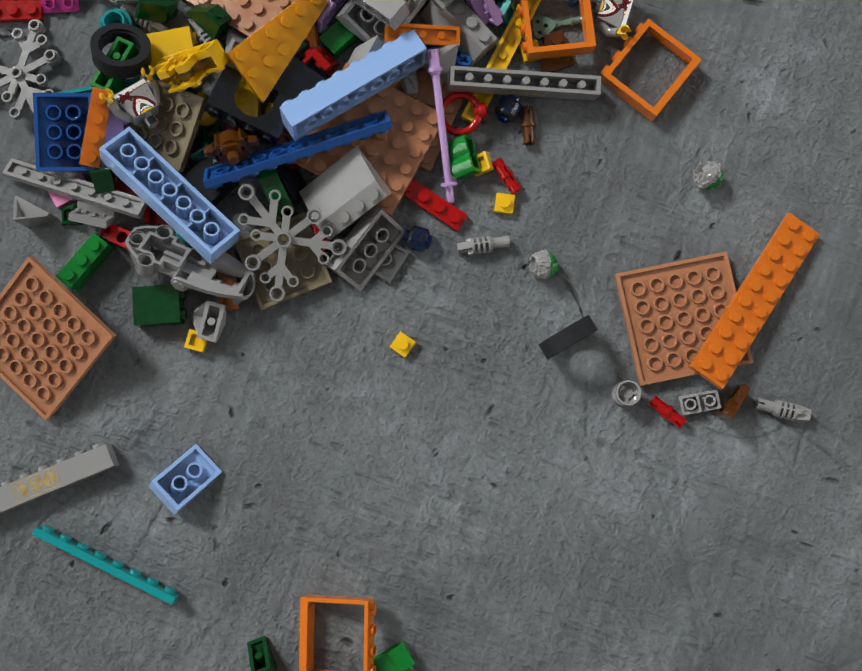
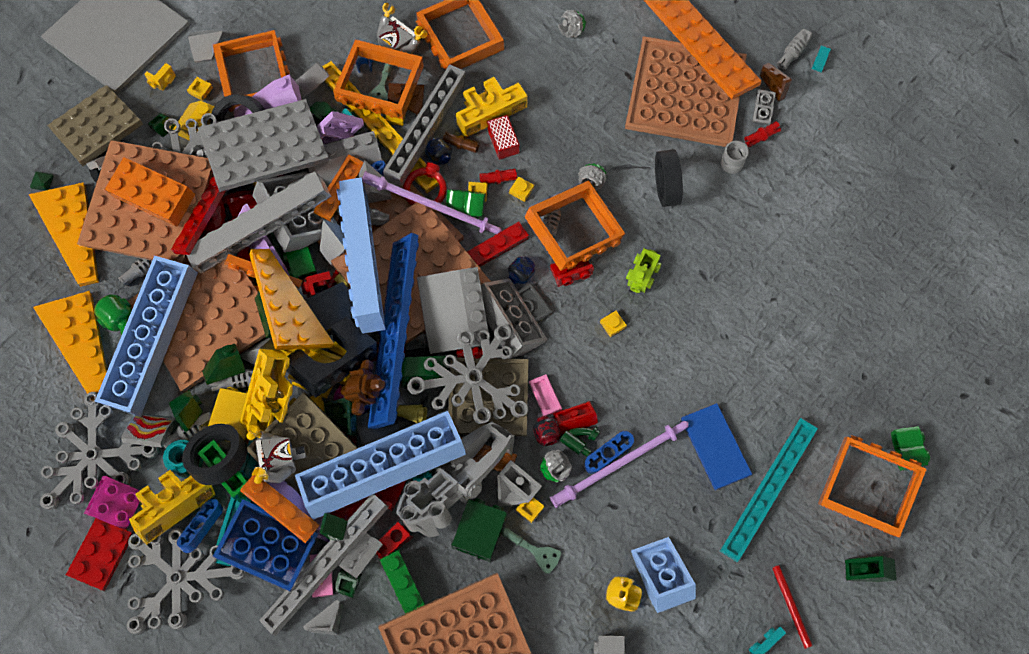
camera: 65 degrees left, 15 degrees down
(65, 32) = (168, 506): none -> yellow piece
(84, 75) = (191, 536): none -> blue beam
(151, 452) = (623, 594): none -> yellow helmet
(162, 362) = (538, 552): none -> sand green piece
(203, 602) = (792, 607): none -> red bar
(225, 370) = (570, 492): none -> lavender bar
(239, 205) = (414, 413): none -> light yellow cone
(241, 347) = (555, 466): none -> light grey piece
(261, 387) = (617, 439): none -> blue beam
(271, 356) = (577, 445): none -> dark green plant
(272, 326) = (546, 431): none -> dark red head
(297, 346) = (576, 417): none -> red slope
(300, 545) = (768, 490): none -> teal plate
(307, 311) = (545, 395): none -> bright pink tile
(322, 483) = (716, 447): none -> blue tile
(440, 284) = (567, 276): none -> red bracket
(460, 351) = (641, 277): none -> lime brick
(525, 264) = (599, 209): none -> orange window
(549, 162) = (503, 137): none -> red panel
(575, 134) = (489, 105): none -> yellow piece
(784, 440) = (821, 58): none -> teal piece

